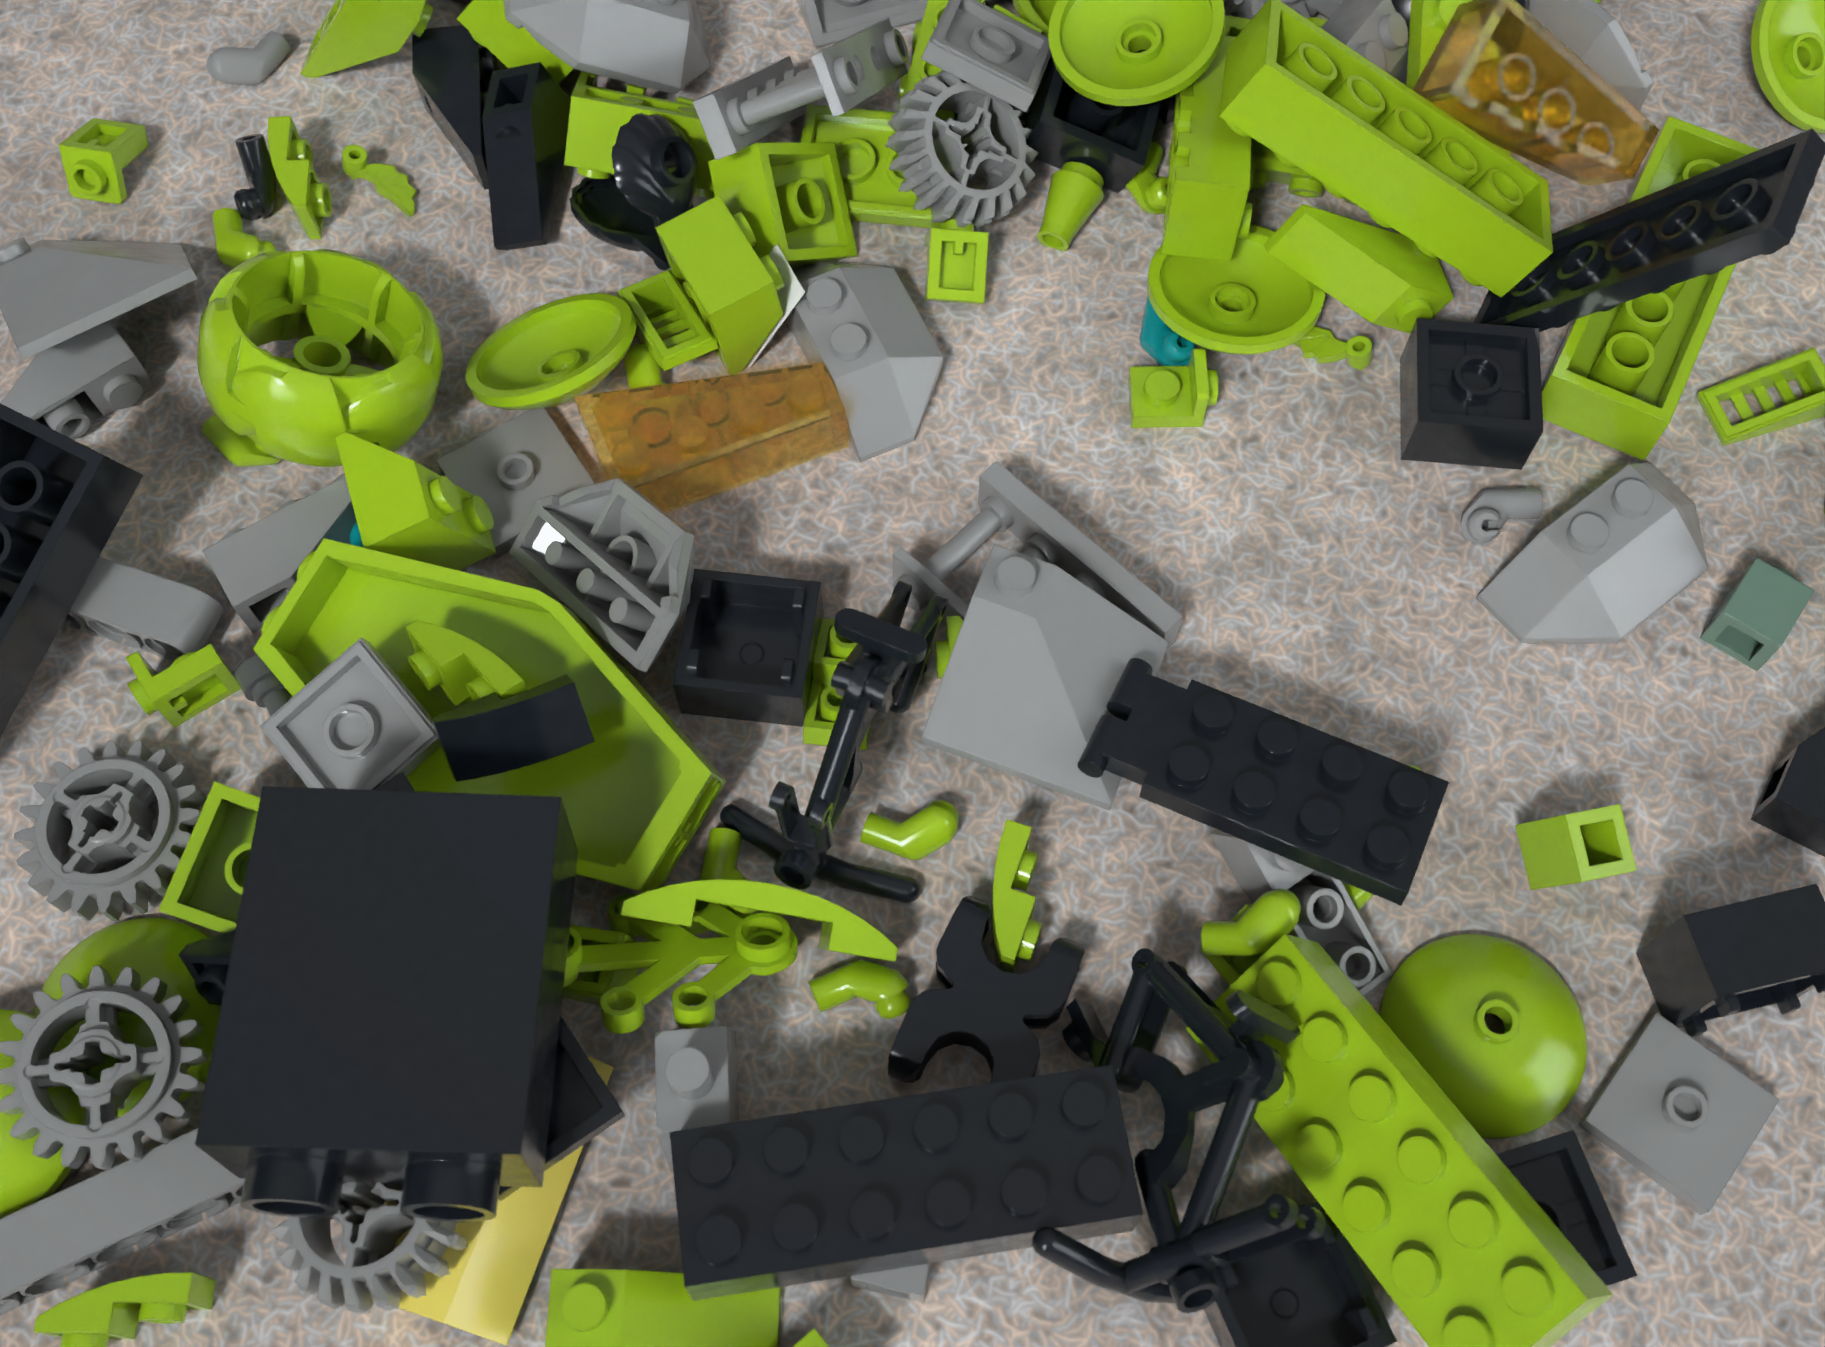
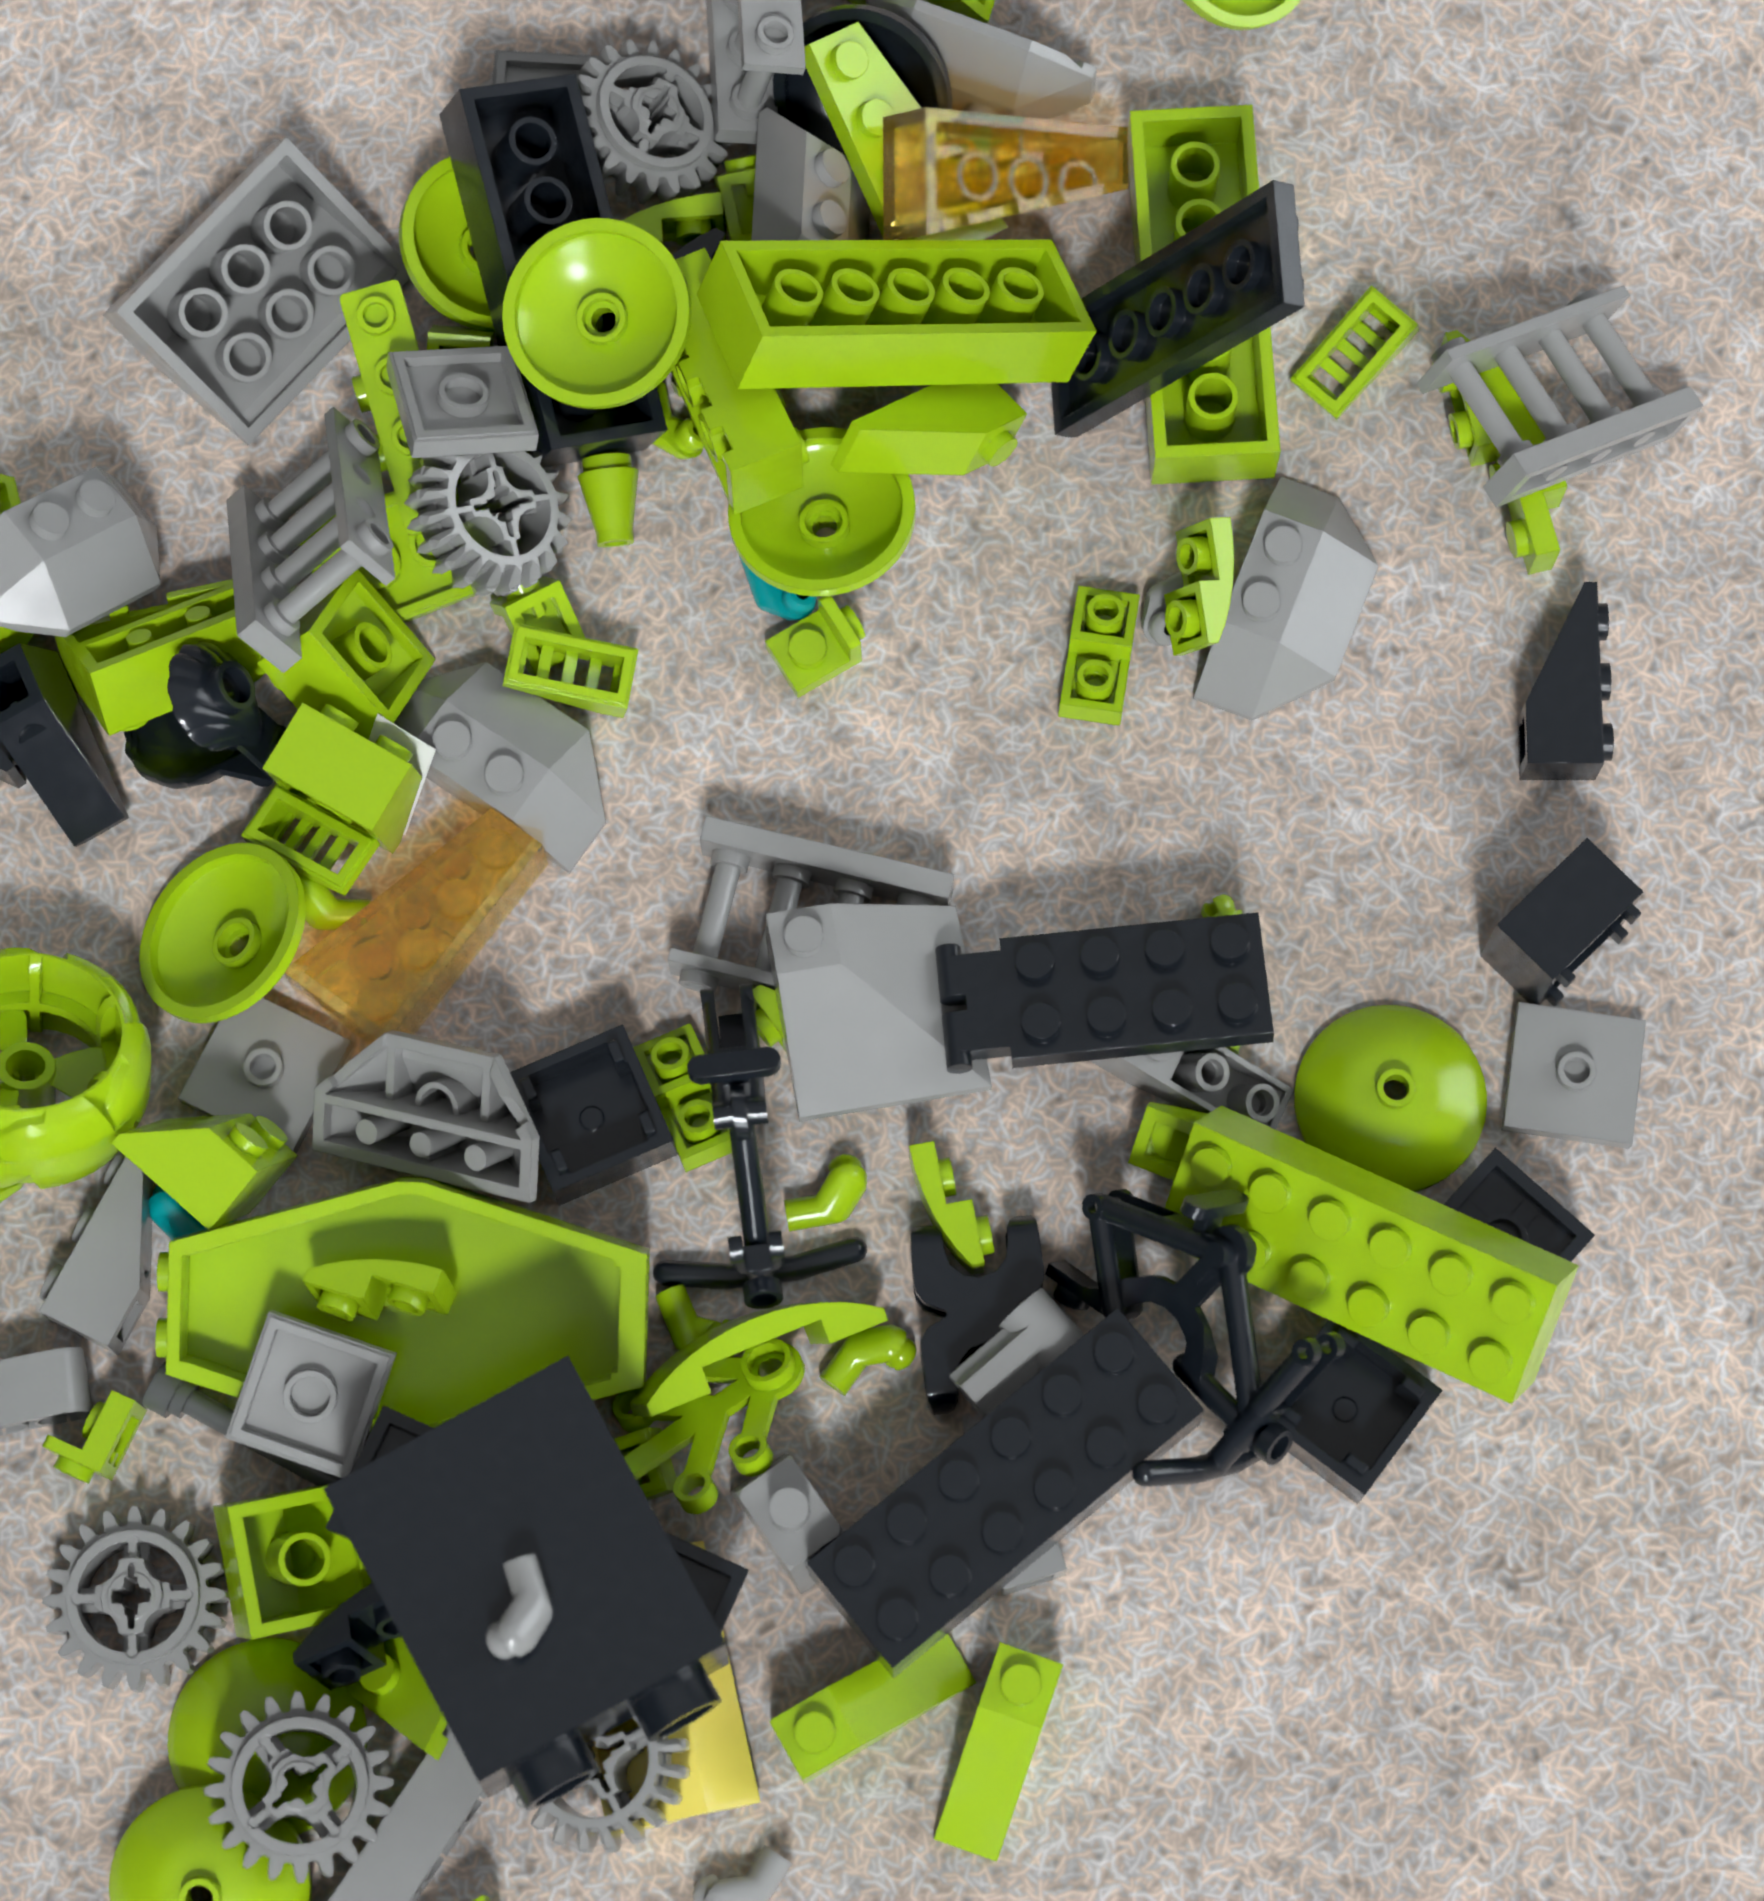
camera: 30 degrees left, 10 degrees up
(350, 1007) = (526, 1615): none -> light grey arm
(513, 732) = (450, 1329): black slope -> none
(944, 319) = (586, 697): none -> lime slope
(1010, 1049) = (1025, 1345): none -> light grey piece
(1257, 930) = (1168, 1124): lime arm -> none
(1326, 349) = (937, 518): lime piece -> none
(1410, 520) = (1099, 655): none -> lime slope
(1470, 394) = (1090, 505): black container -> none
(1549, 487) = (1200, 608): none -> lime slope
(1576, 847) = (1387, 898): lime brick -> none
(1757, 614) = (1439, 585): sand green brick -> none

